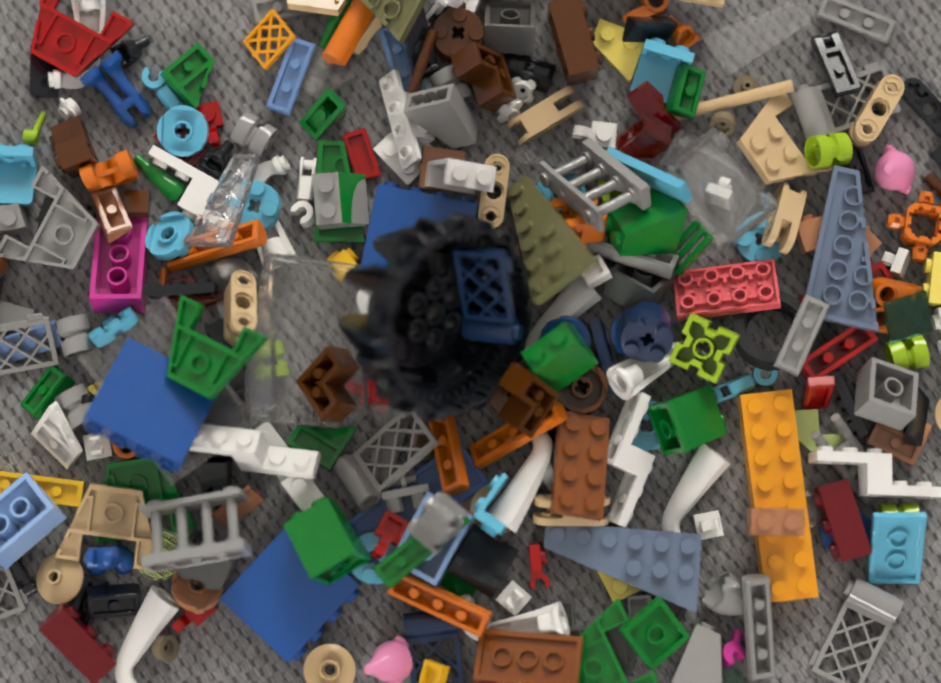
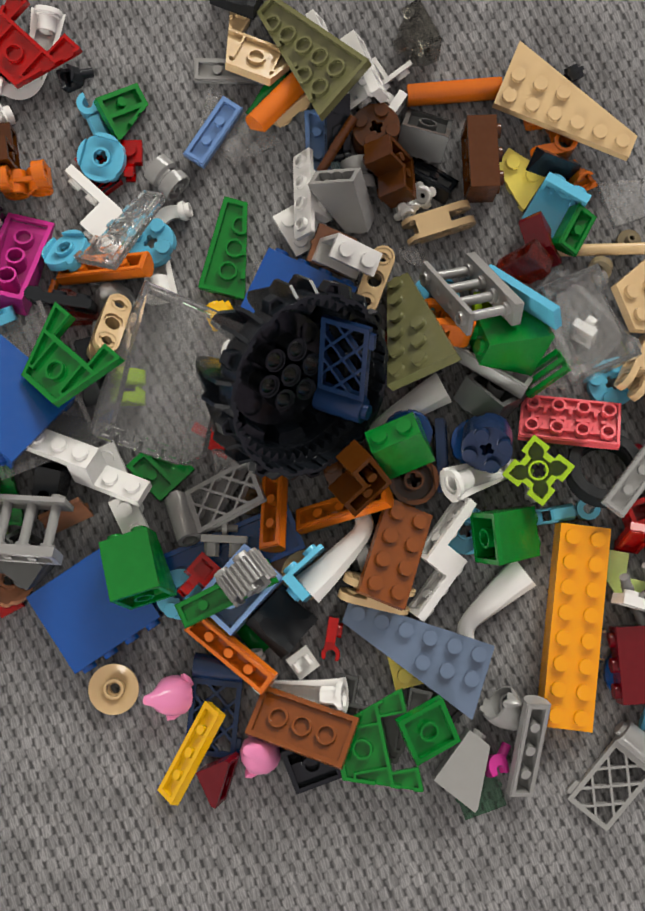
camera: 10 degrees right, 0 degrees up
(111, 213) = (17, 217): nougat slope -> none
(113, 68) = (53, 83): blue piece -> none
(137, 203) = (44, 215): reddish brown tile -> none
(166, 183) = (76, 203): green piece -> none
(217, 159) = (128, 191): black piece -> none
(258, 29) = (210, 103): light orange window -> none
(305, 193) = (201, 242): white piece -> none
(323, 114) = (234, 173): green slope -> none
(325, 382) = (173, 418): reddish brown brick -> none
(340, 200) = (230, 253): light grey slope -> none
(361, 154) = (260, 220): red tile -> none
(597, 274) = (452, 376): white tile -> none
(601, 132) = (487, 250): white plate -> none
(708, 524) = (501, 636): white tile -> none
(776, 522) = (569, 653): nougat piece -> none

